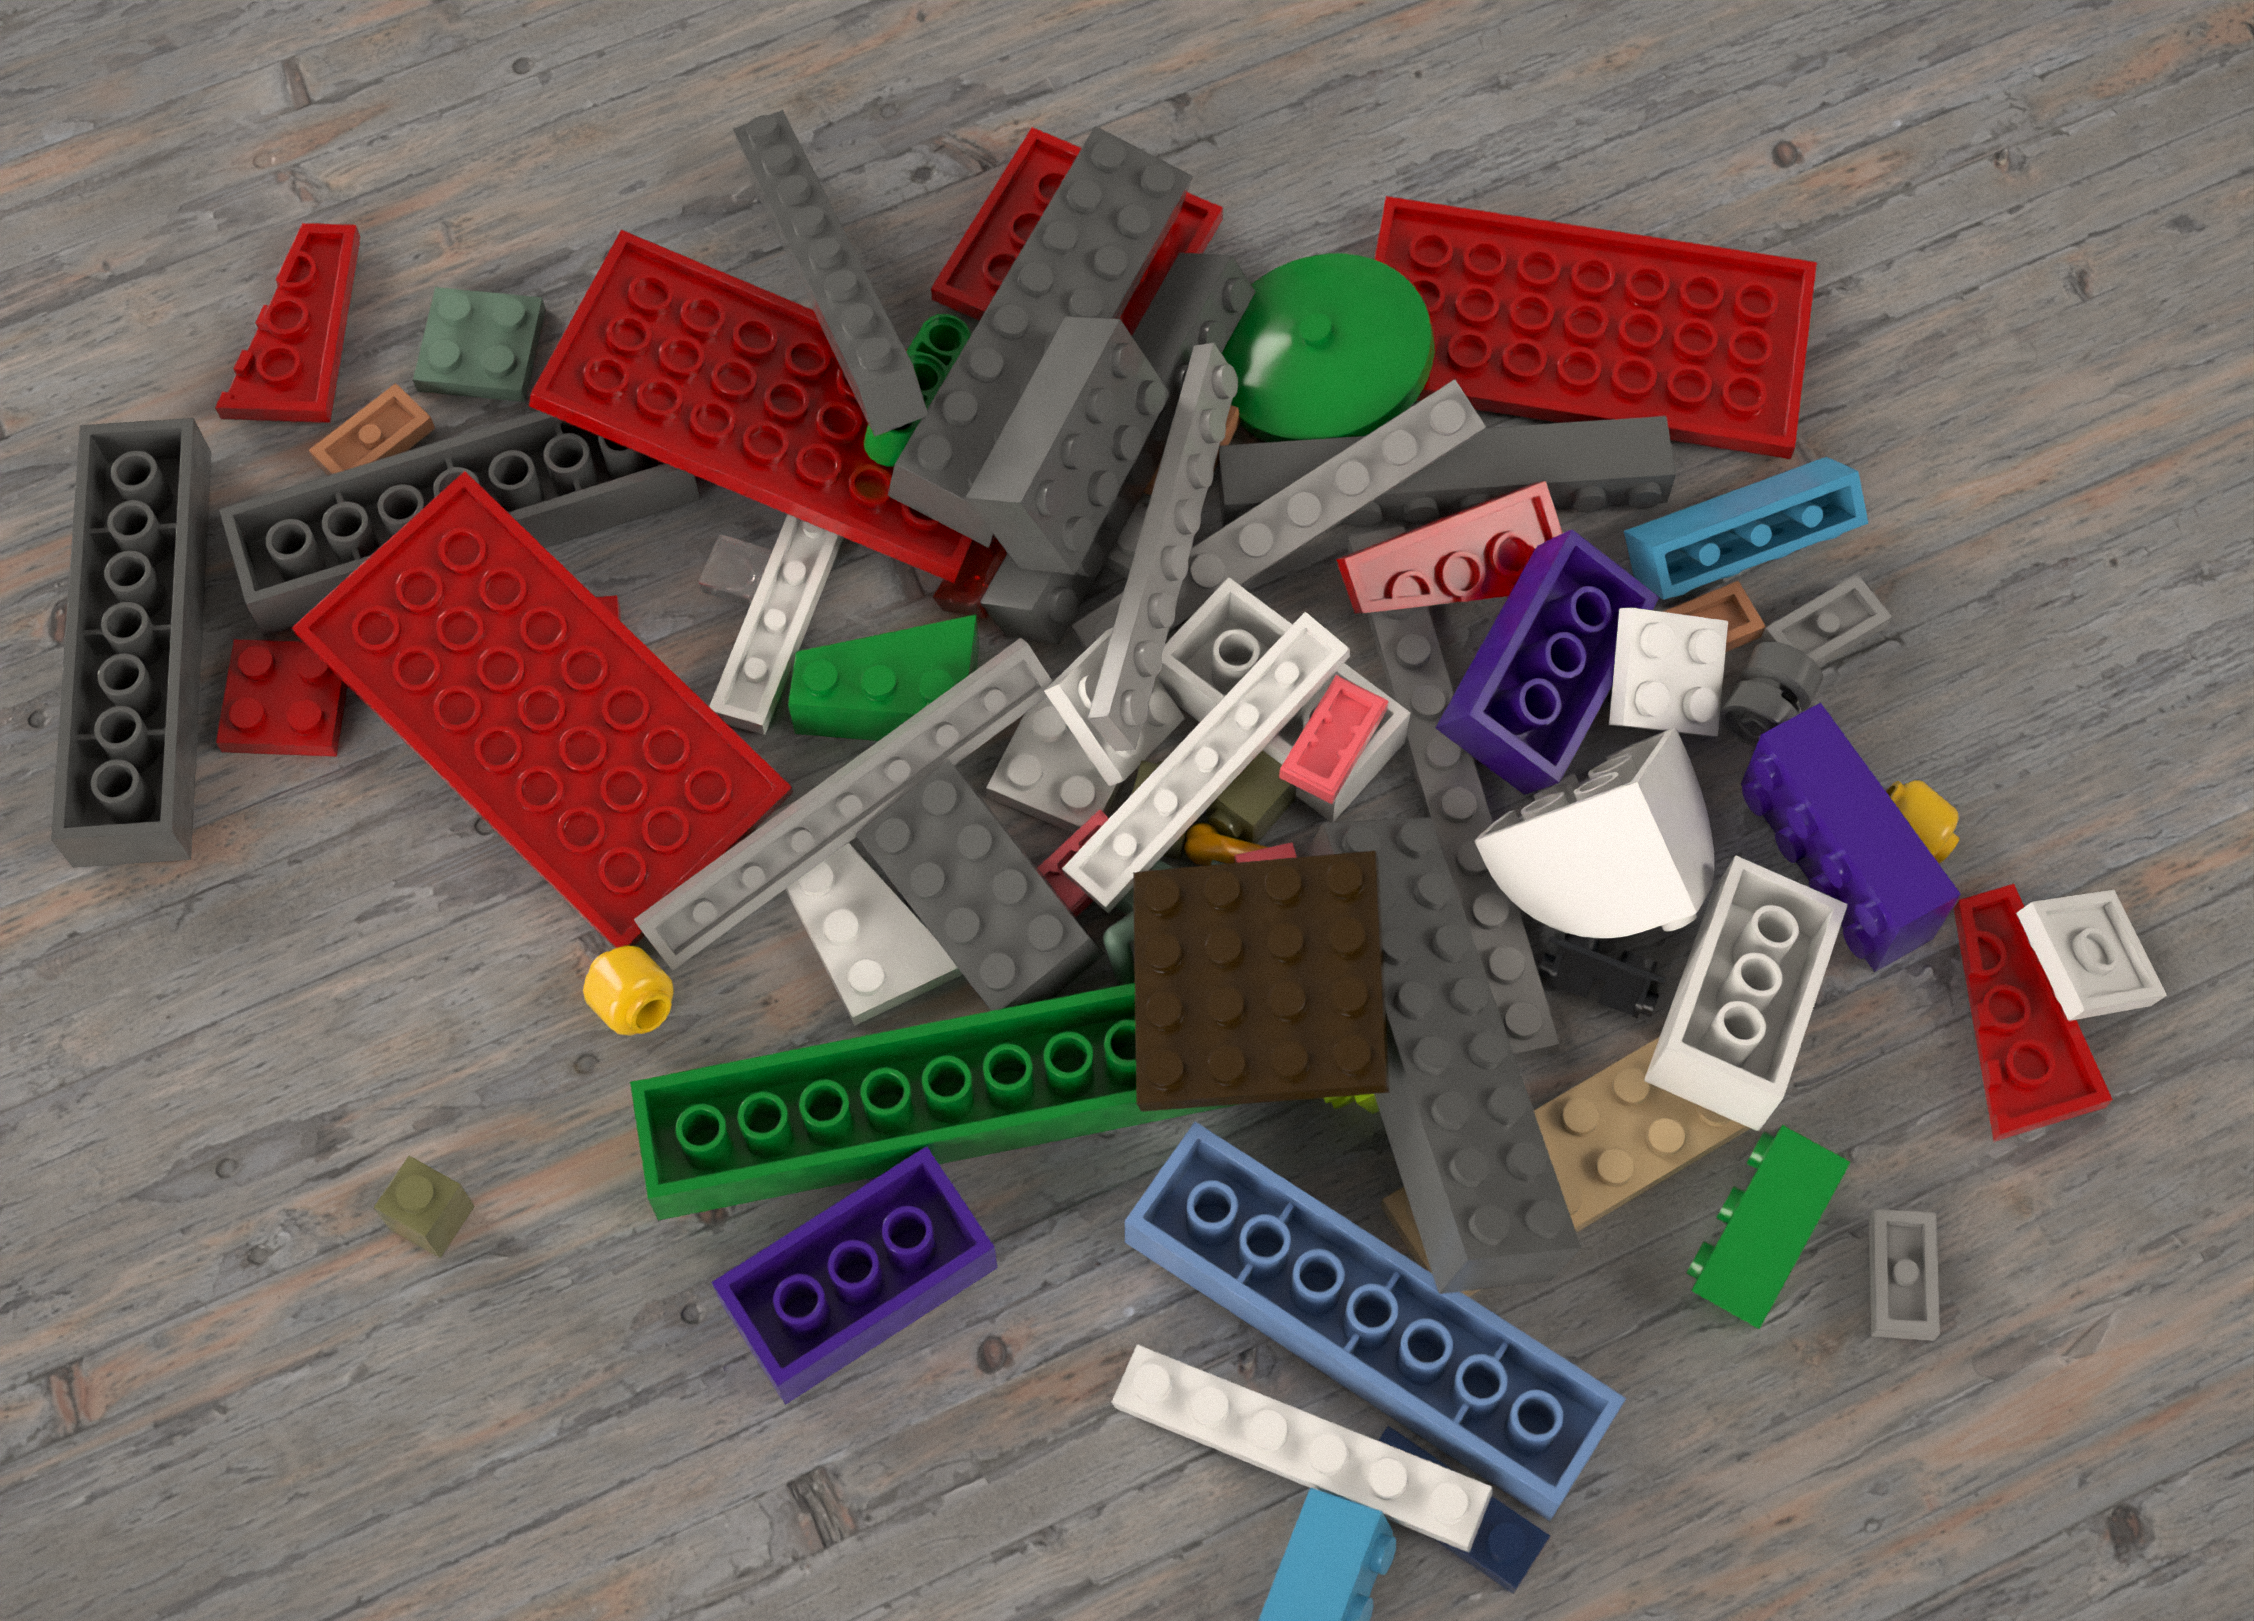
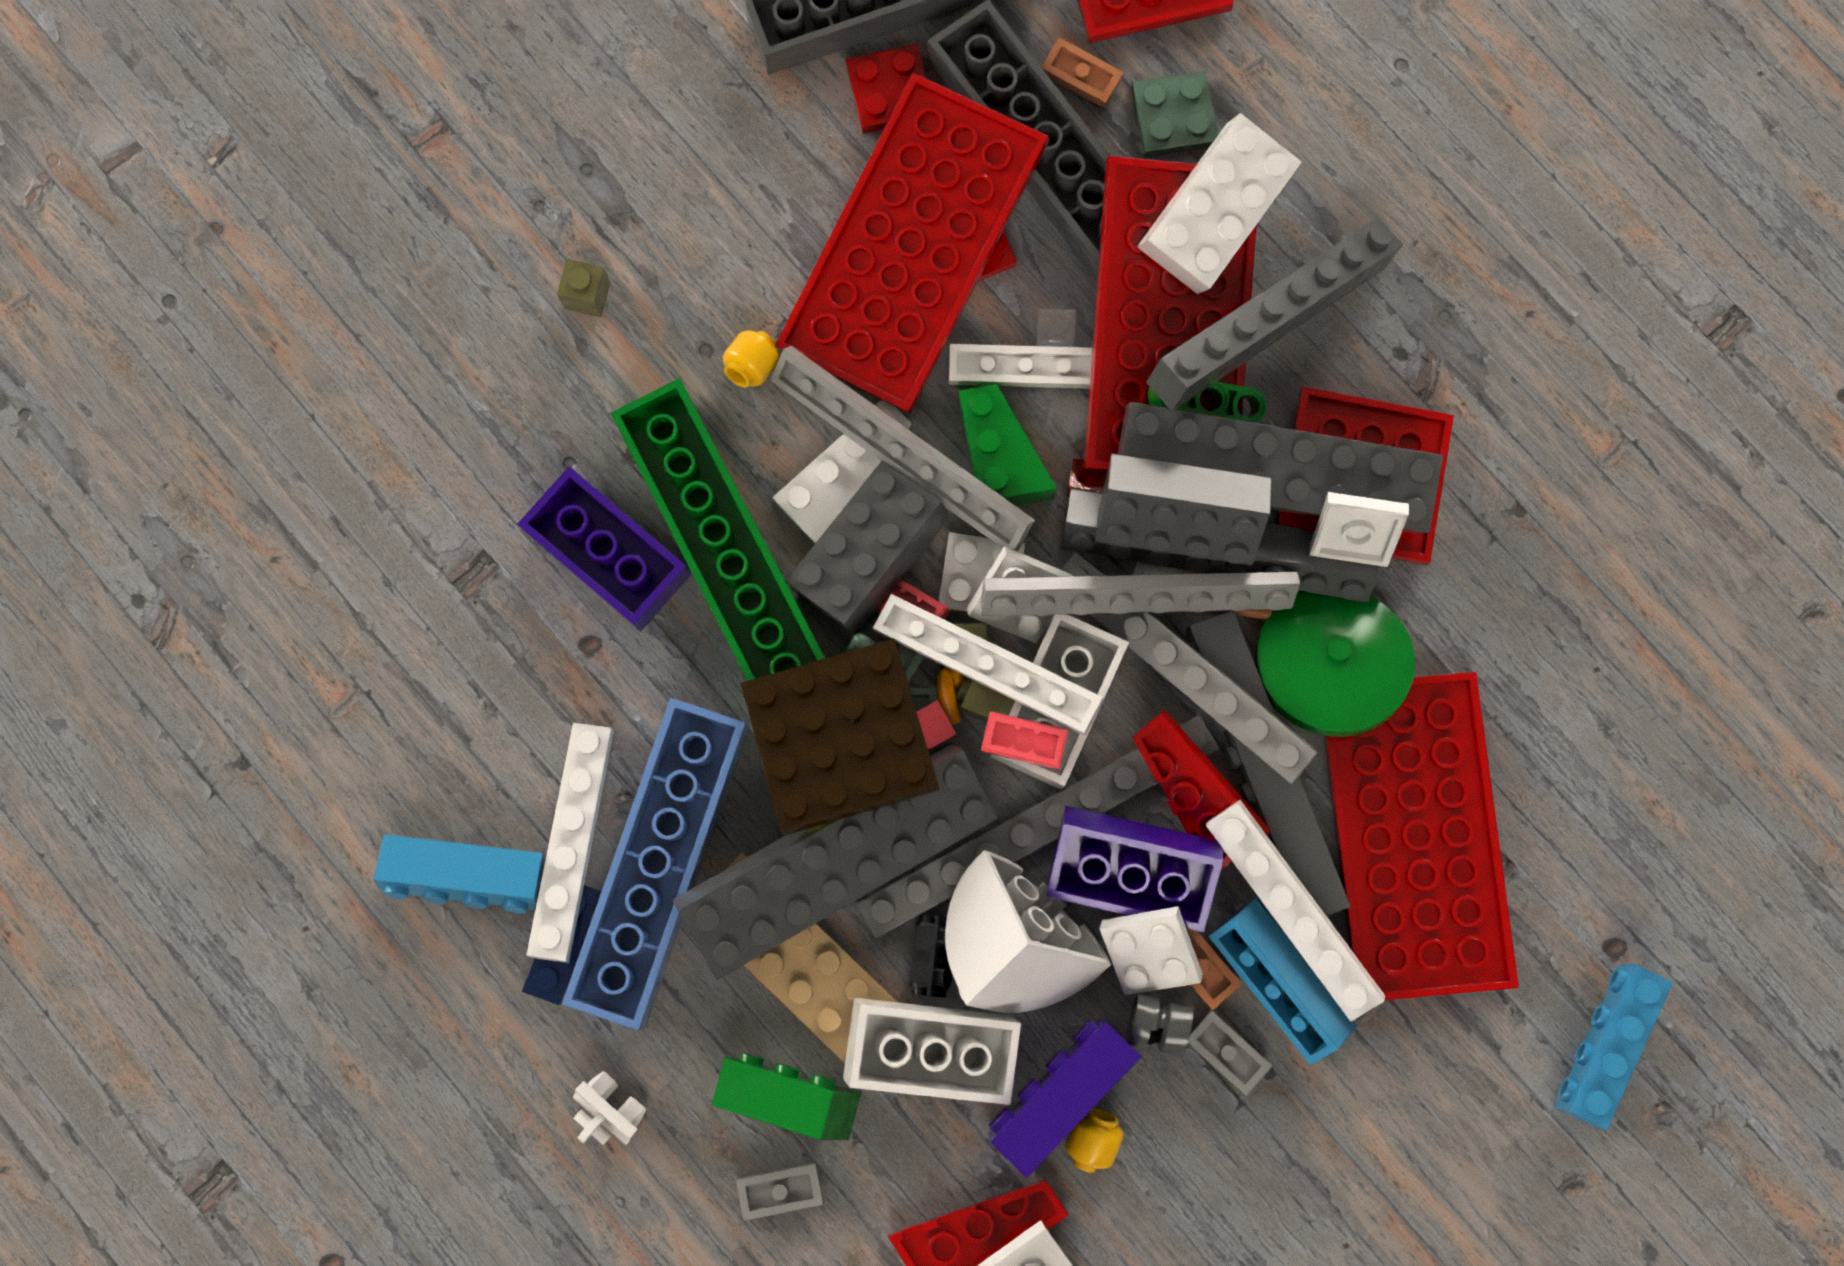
camera: 75 degrees right, 15 degrees up
(655, 281) = (1219, 204): none -> white brick
(1164, 248) = (1358, 529): none -> white plate
(1654, 477) = (1295, 911): none -> white plate
(1738, 1508) = (593, 1099): none -> white hips
(1915, 180) = (1613, 1045): none -> dark azure brick

